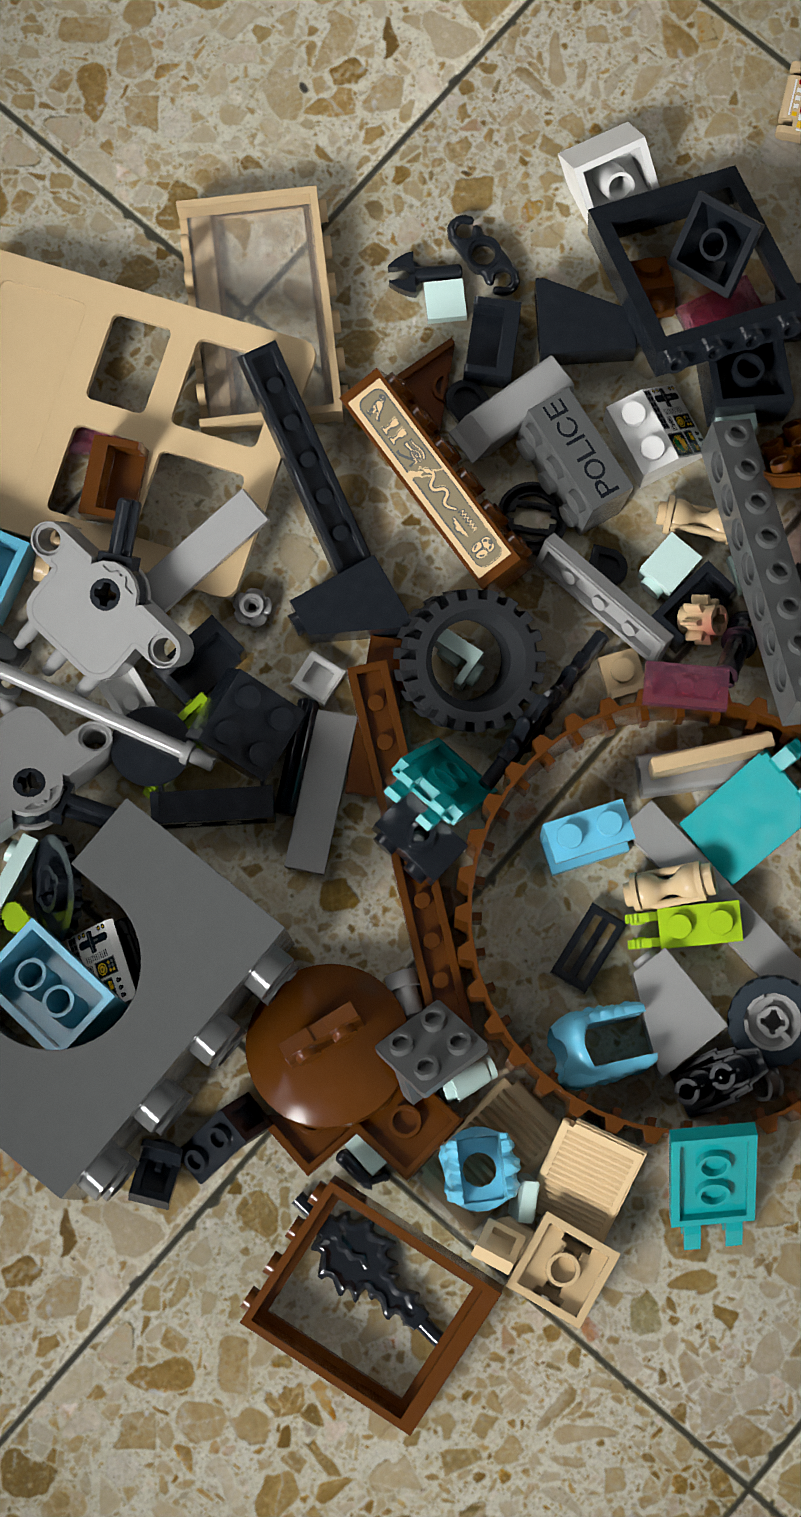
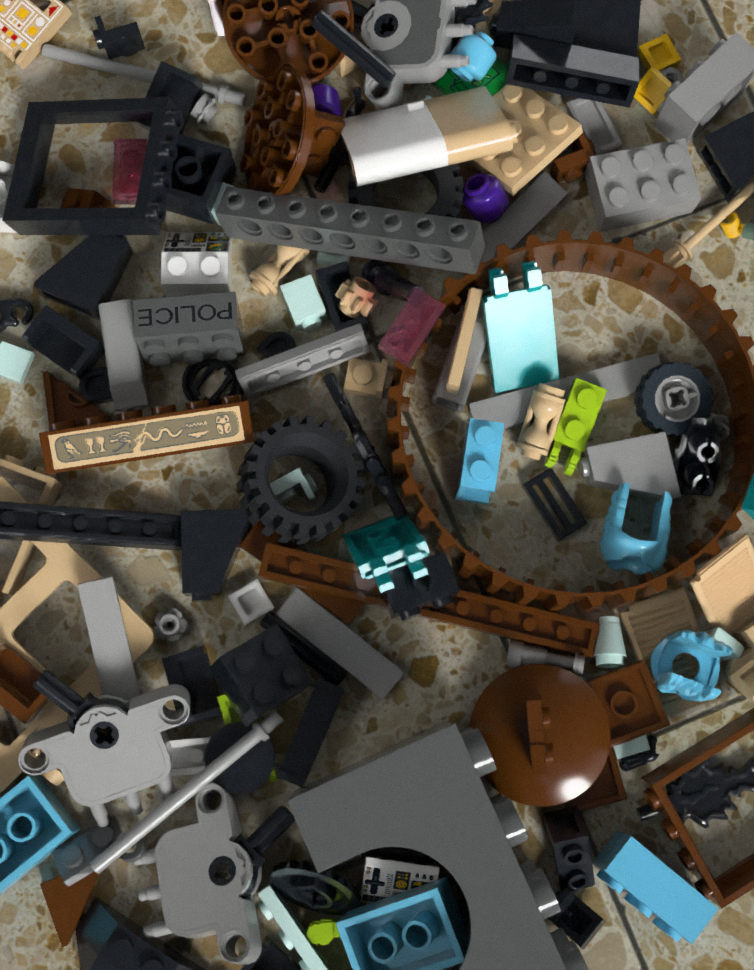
camera: 70 degrees left, 0 degrees up
(226, 1239) = (653, 888): none -> medium azure brick
(430, 1051) = (587, 657): dark grey bracket -> none
(715, 244) = (82, 141): black slope -> none

